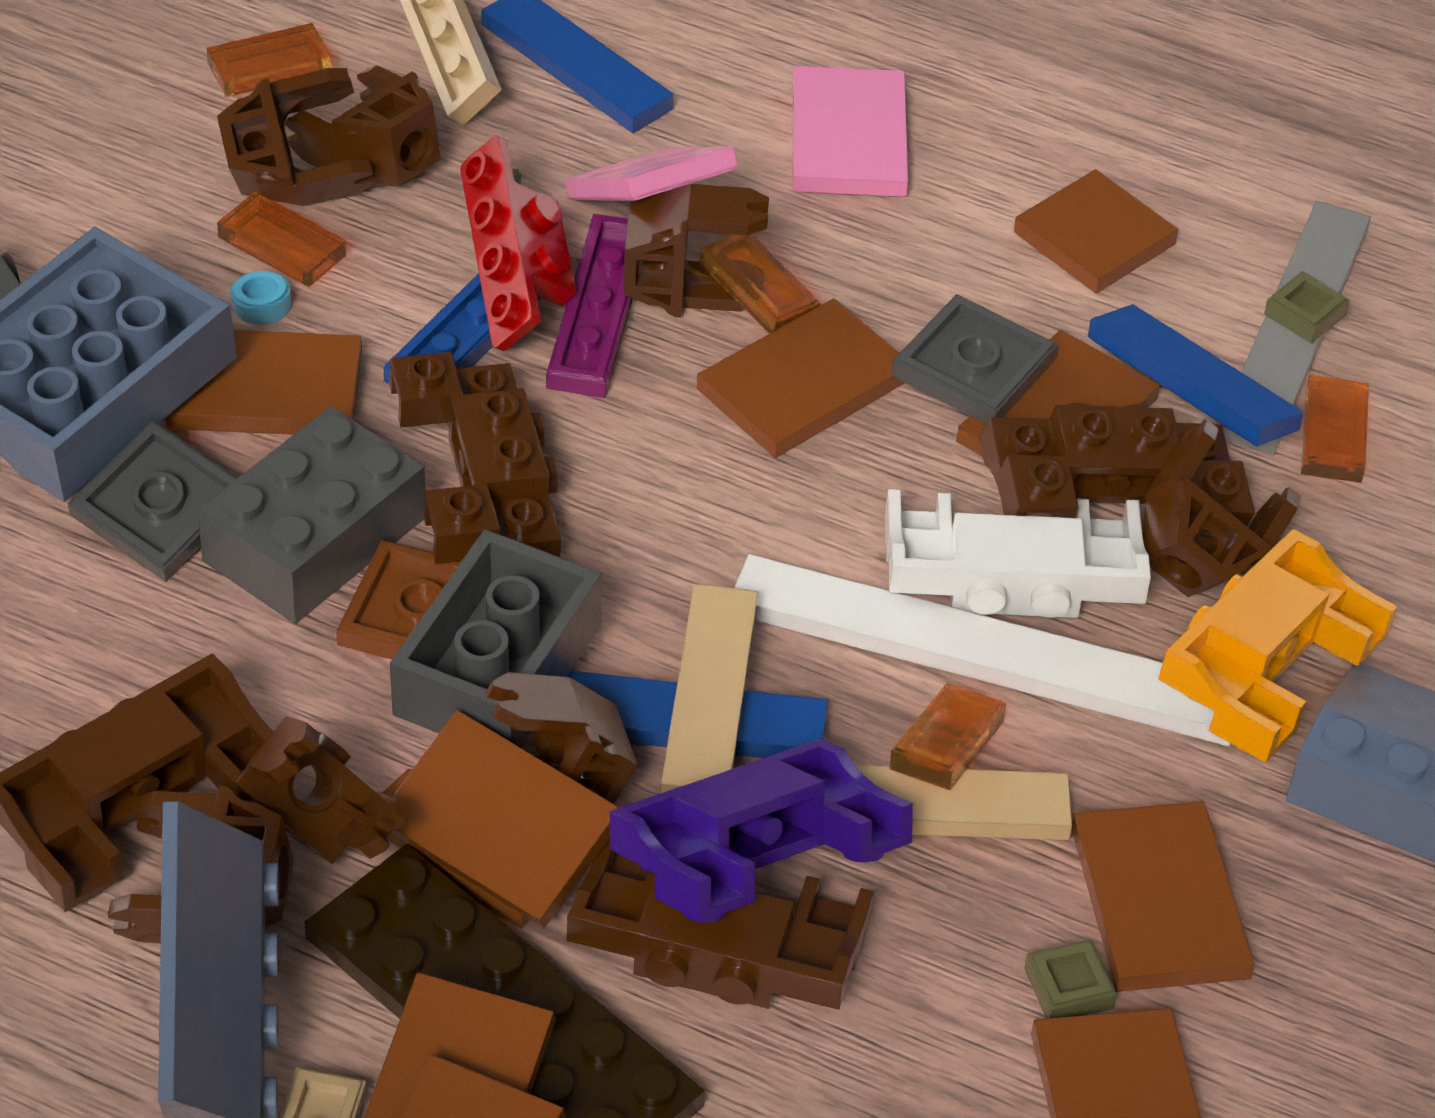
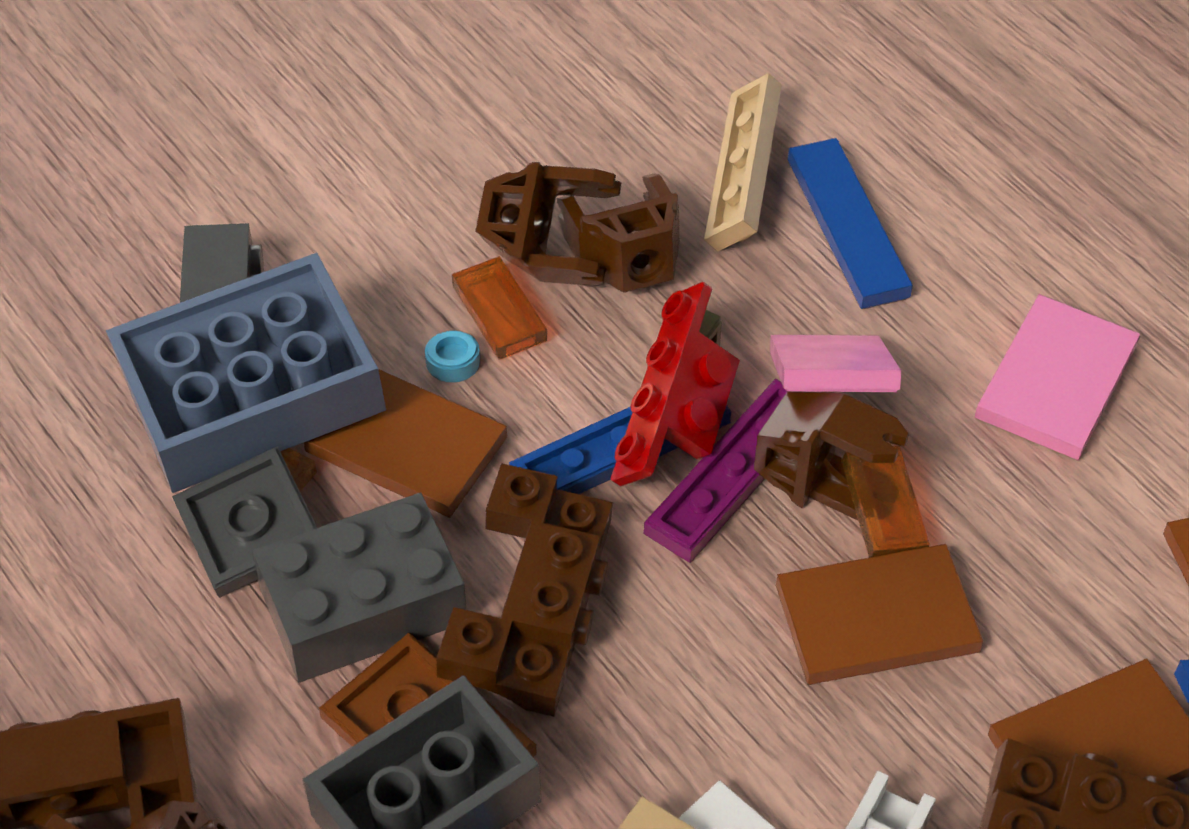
camera: 30 degrees right, 5 degrees up
(270, 55) = (586, 135): clear orange tile -> none
(974, 359) = (1041, 662): dark grey tile -> none

